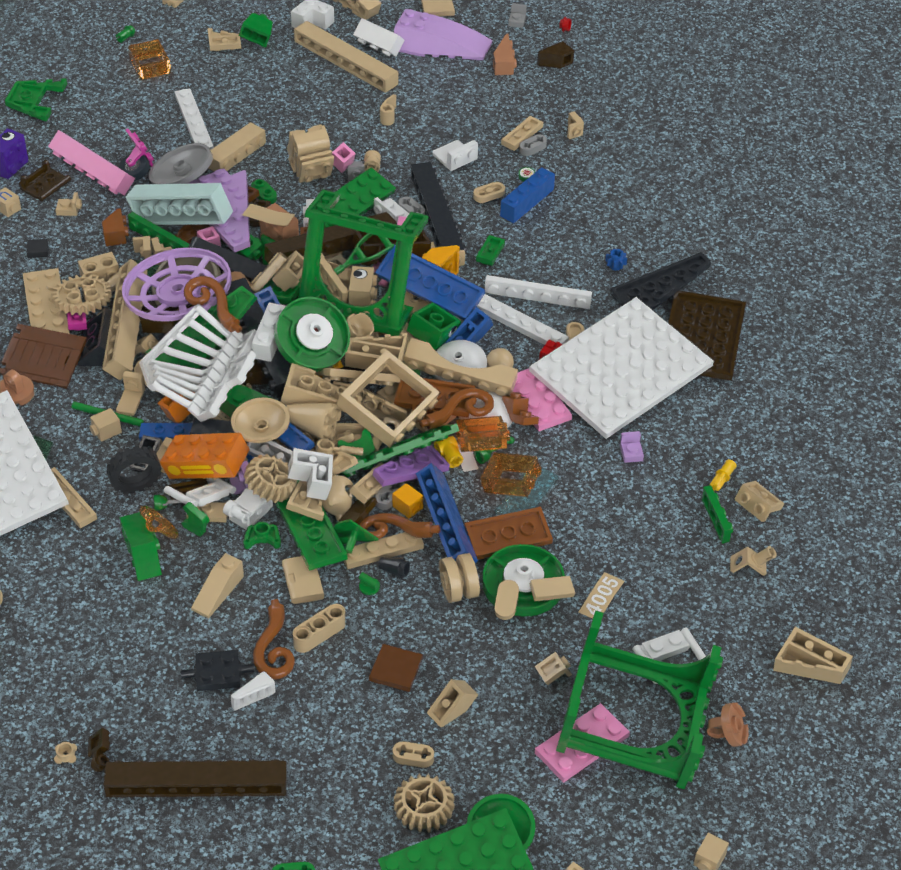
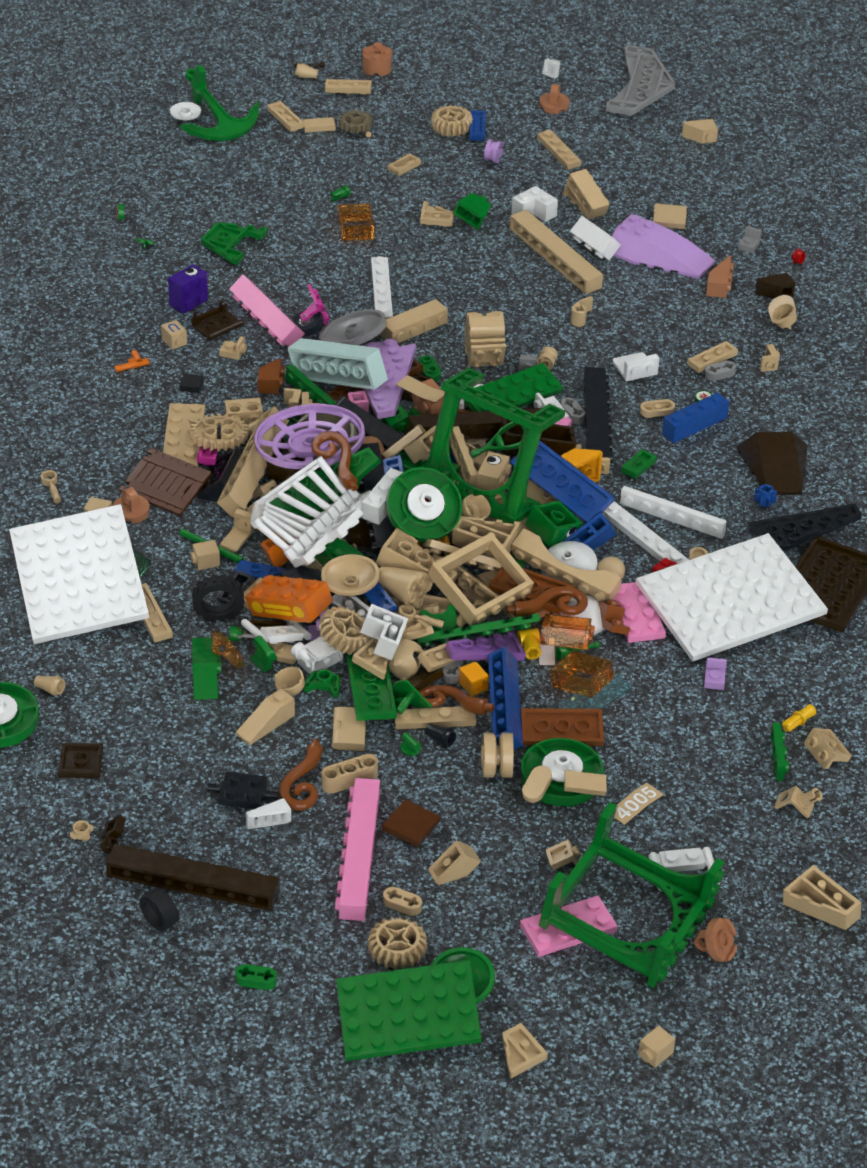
camera: 15 degrees right, 5 degrees down
(42, 674) = (80, 760): none -> dark brown tile
(174, 825) = (159, 909): none -> black tyre
(229, 541) = (290, 680): none -> tan hair
(343, 157) = (516, 348): bright pink brick -> none
(355, 710) = (359, 849): none -> bright pink brick
(571, 78) = (783, 311): none -> tan piece
(613, 223) = (776, 460): none -> dark brown wedge

